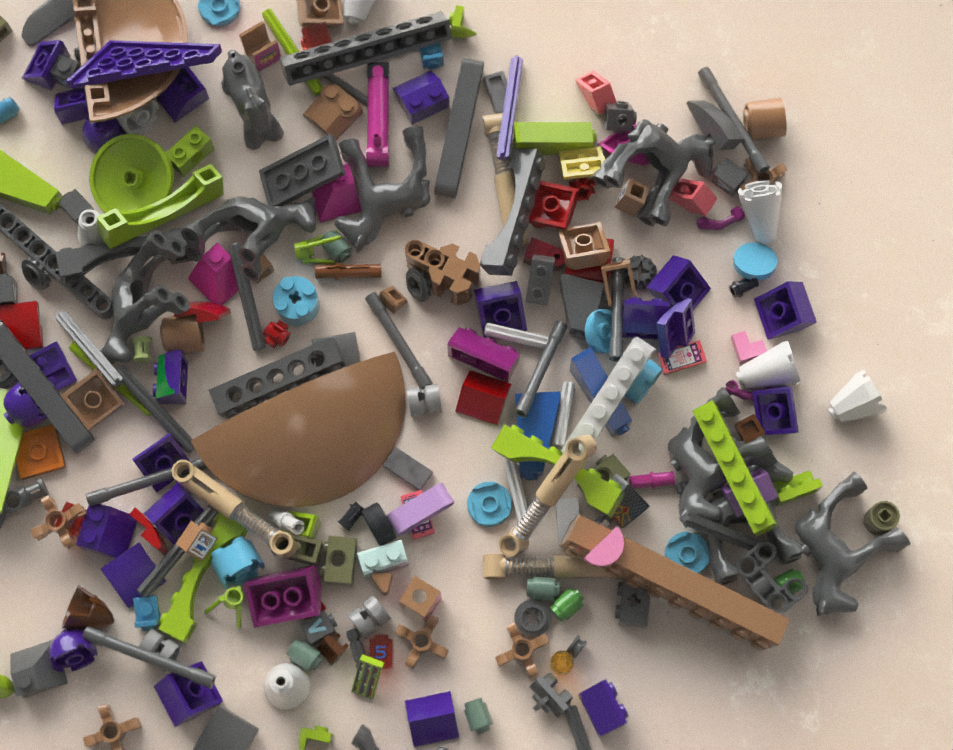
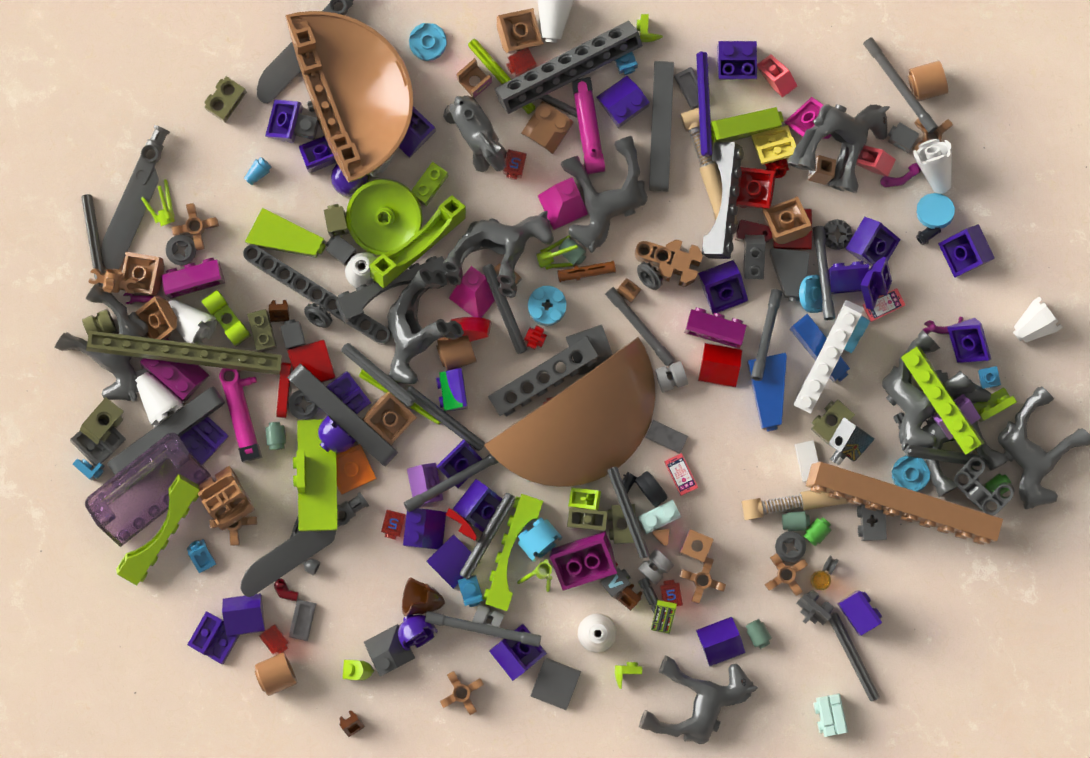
camera: 10 degrees left, 10 degrees up
(42, 531) = (399, 518): medium nougat pin -> none
(75, 172) = (336, 220): none -> olive brick
(118, 471) = (423, 478): none -> medium lavender panel
(138, 58) = (369, 114): dark purple wing -> none
(142, 343) = (422, 367): yellowish green bush -> none
(197, 540) = (504, 526): medium nougat brick -> none
(232, 507) = (528, 495): tan piece -> none
(286, 521) = (573, 498): white pin -> none
(288, 142) = (515, 164): none -> clear red brick
(302, 171) = (532, 191): dark grey plate -> none
(304, 655) = (608, 606): sand green brick -> none
(346, 547) = (628, 512): none -> dark grey axle
(420, 509) = (684, 471): lavender beam -> none
(489, 504) = (739, 456): medium azure tile -> none
(515, 335) = (740, 308): white axle -> none
(516, 488) = (761, 441): white axle -> none
(518, 448) = (832, 438): lime arch -> none
(549, 493) = (791, 445): tan piece -> none
(554, 66) = (737, 60): none -> dark purple slope
(563, 414) = (790, 375): white axle -> none
(607, 550) = (848, 487): bright pink tile -> none
(613, 266) = (825, 234): medium nougat piece -> none
(619, 117) = (801, 98): dark grey brick -> none
(652, 480) = (873, 415): dark pink axle -> none
(715, 124) = (884, 91): dark grey slope -> none
(744, 349) = (936, 290): bright pink piece -> none
(749, 429) = (949, 360): reddish brown tile -> none
(770, 369) = (960, 305): white cone -> none
(794, 455) = (989, 377): none -> dark azure bracket
(881, 518) = (1068, 419): olive wheel -> none

